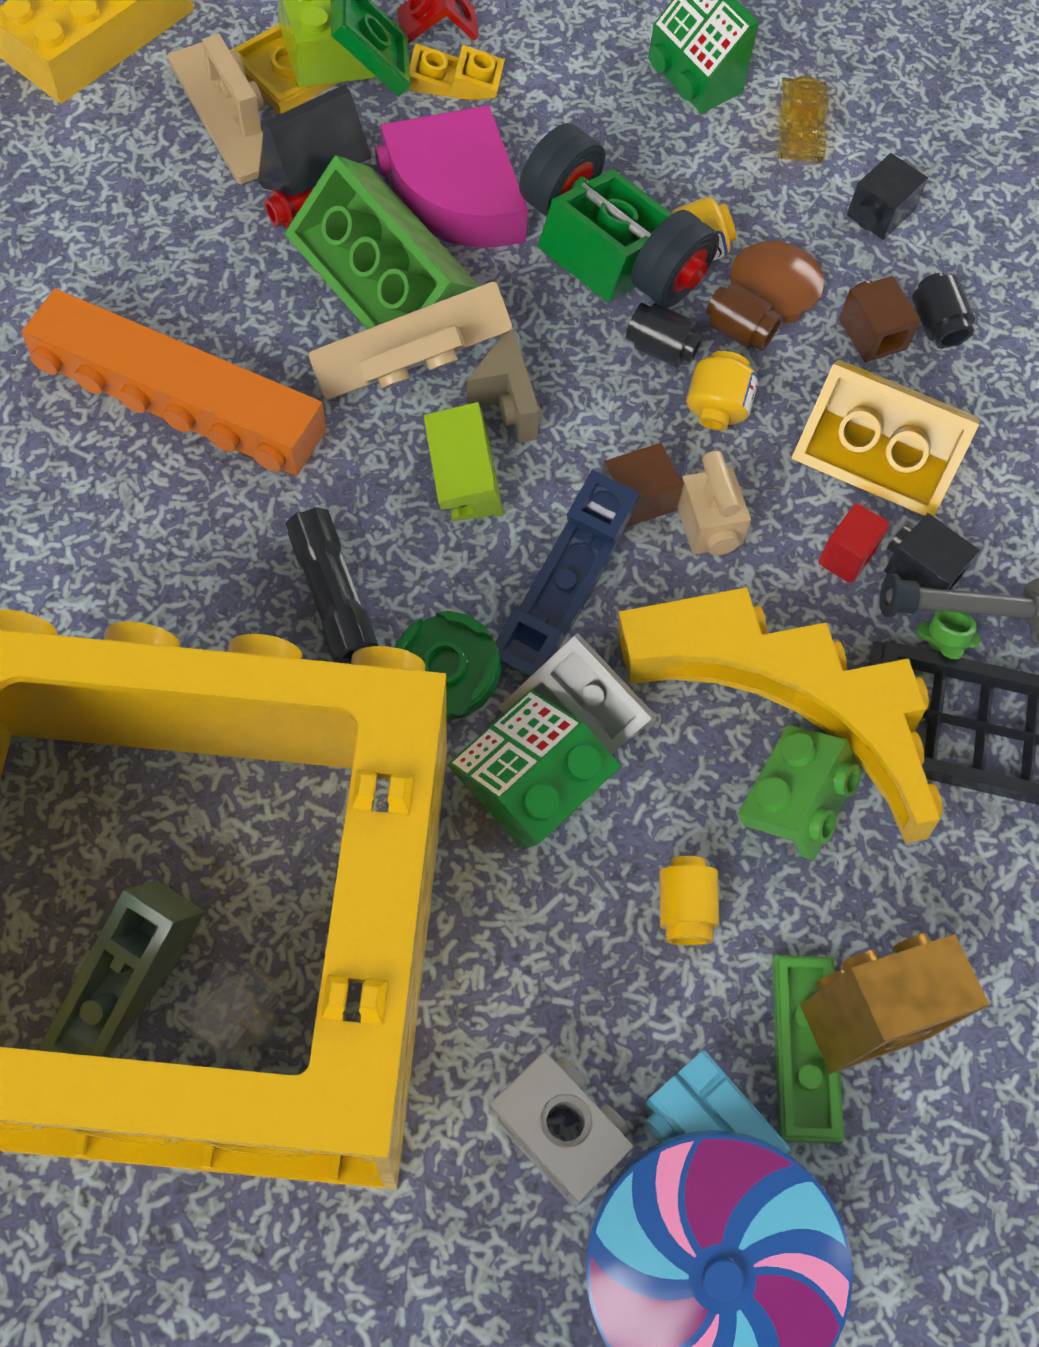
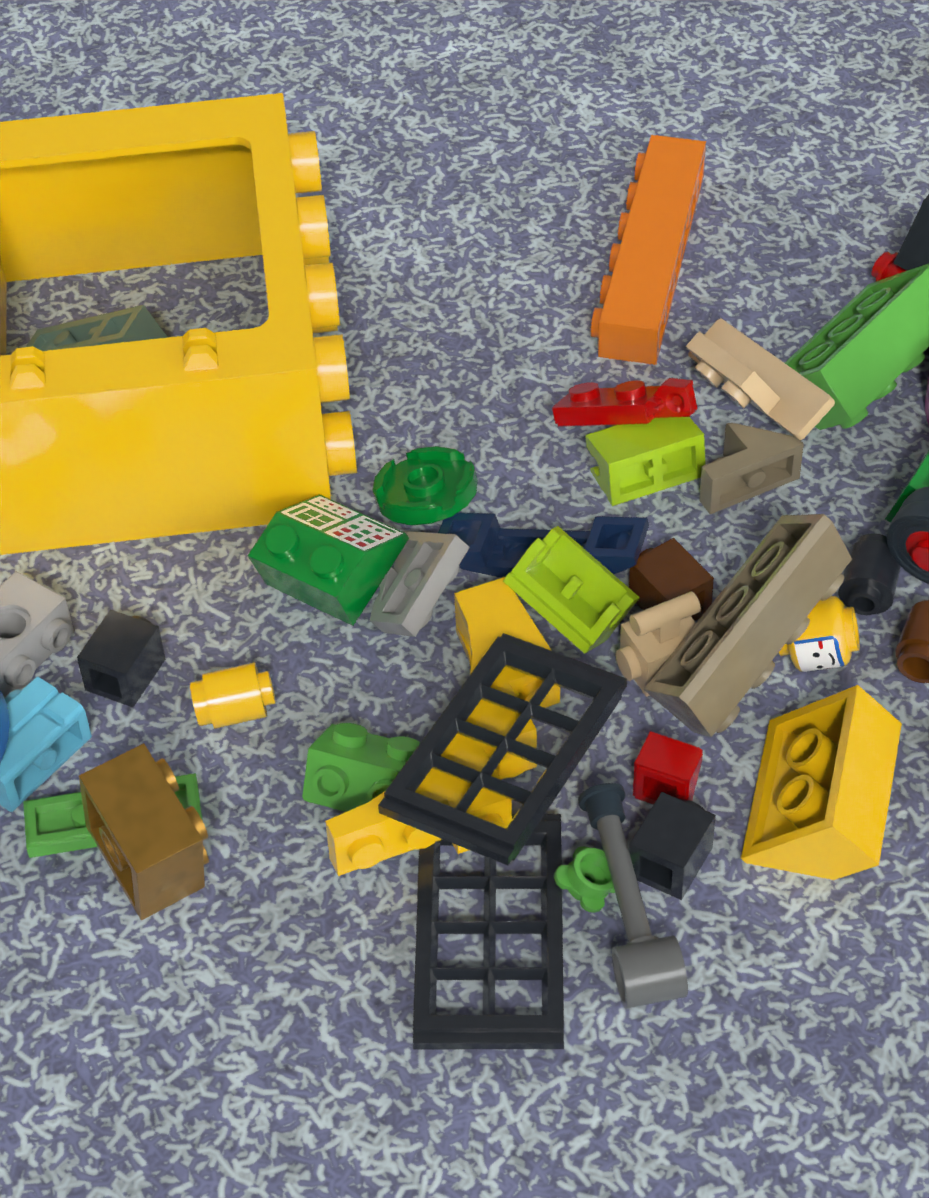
camera: 85 degrees right, 15 degrees down
(334, 594) = (449, 409): black axle -> none
(407, 459) = (625, 404): none -> red hinge
(616, 1004) = (121, 658): none -> black brick
(644, 561) = (571, 589): none -> lime hinge
(758, 415) = (751, 623): none -> dark tan slope
(943, 712) = (469, 831): none -> black piece

